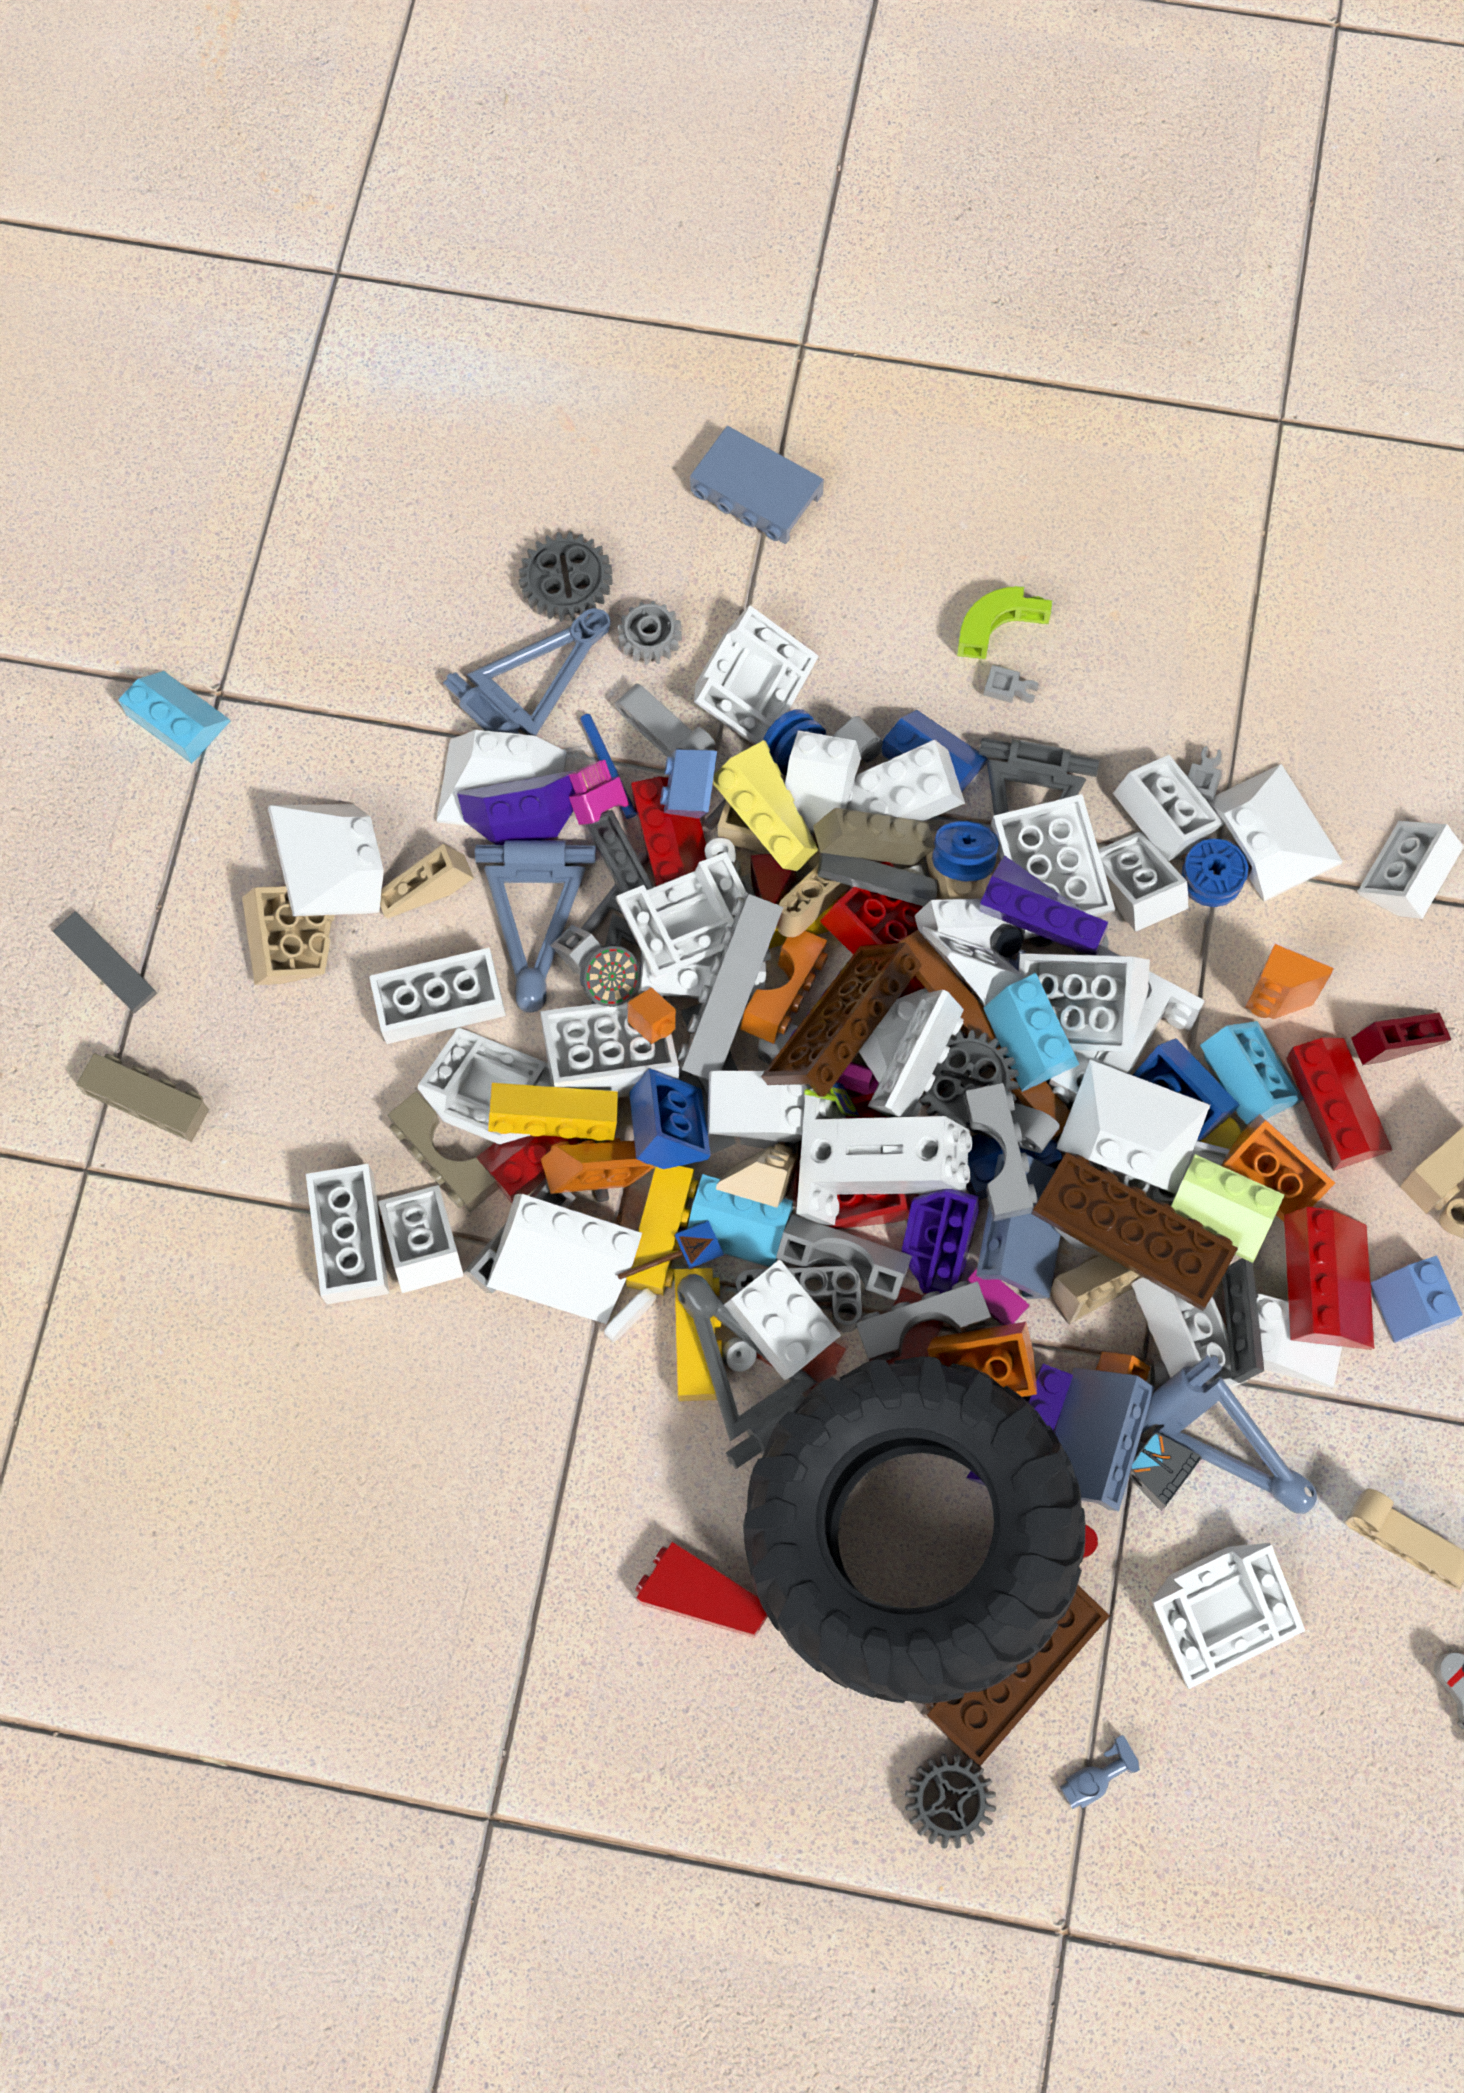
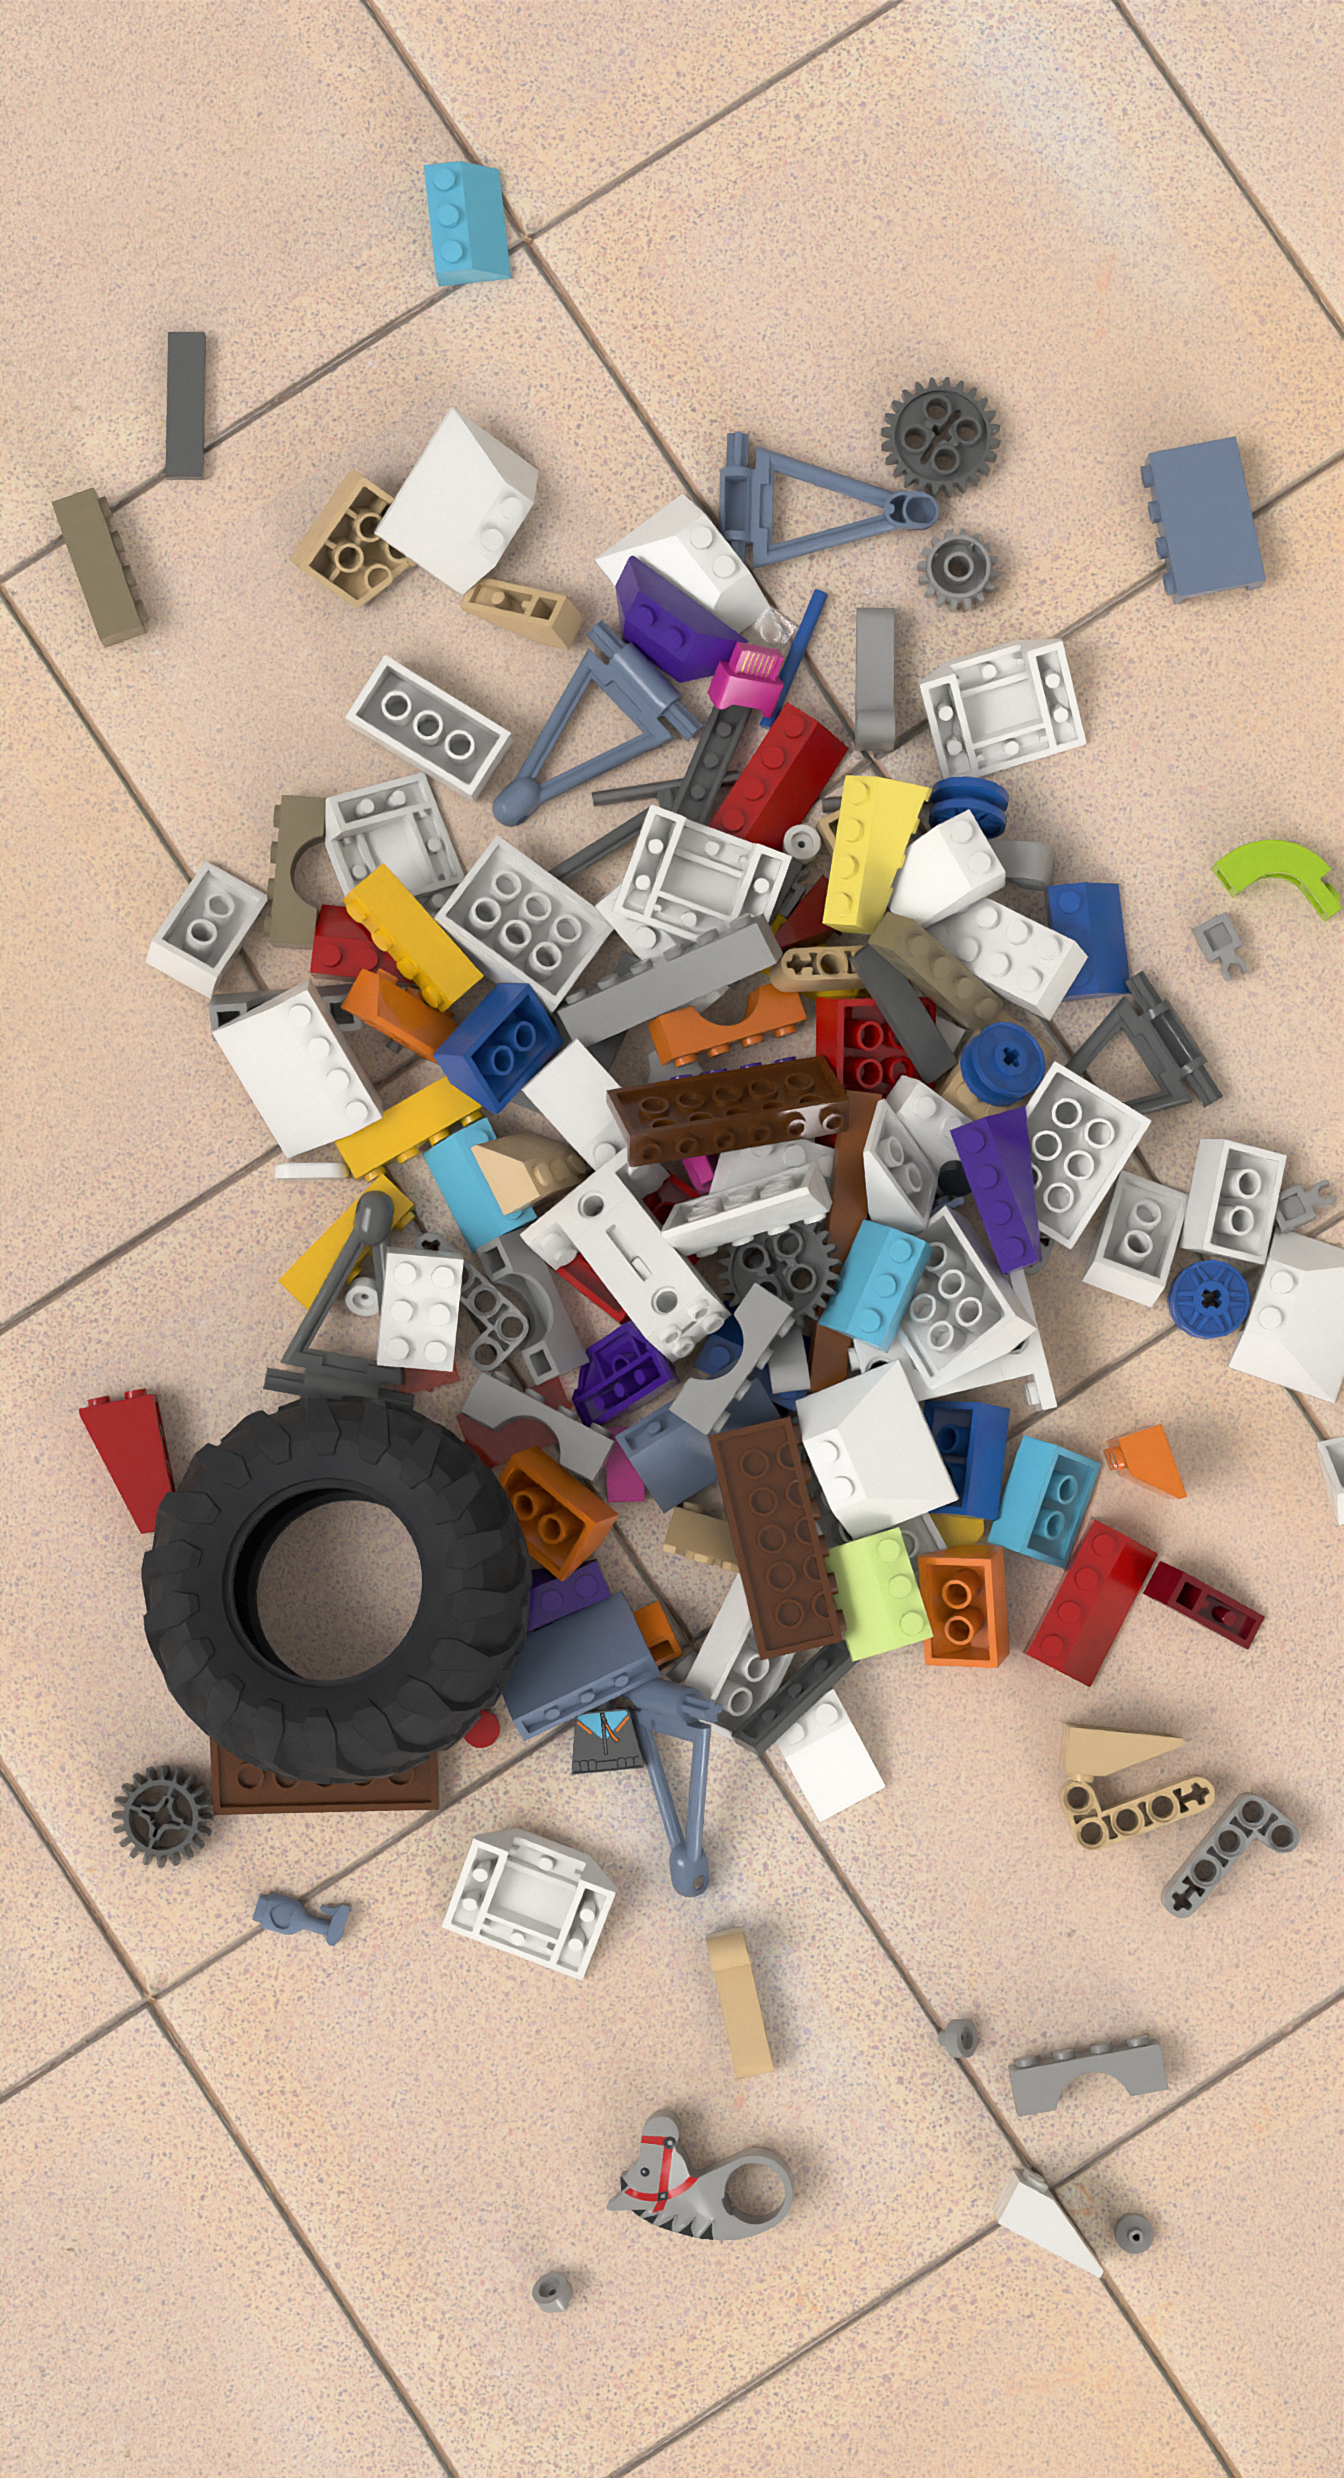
camera: 50 degrees right, 15 degrees up
(347, 1234) = (149, 865): white brick -> none
(575, 946) = (585, 817): light grey brick -> none
(610, 975) = (583, 865): dark grey tile -> none
(651, 1015) = (580, 938): orange brick -> none
(688, 782) = (825, 759): medium blue slope -> none
(696, 1245) = (419, 1174): piece -> none
(840, 1095) = (663, 1177): lime piece -> none
(1328, 1279) = (906, 1738): red slope -> none
(1416, 1299) = (963, 1826): medium blue slope -> none

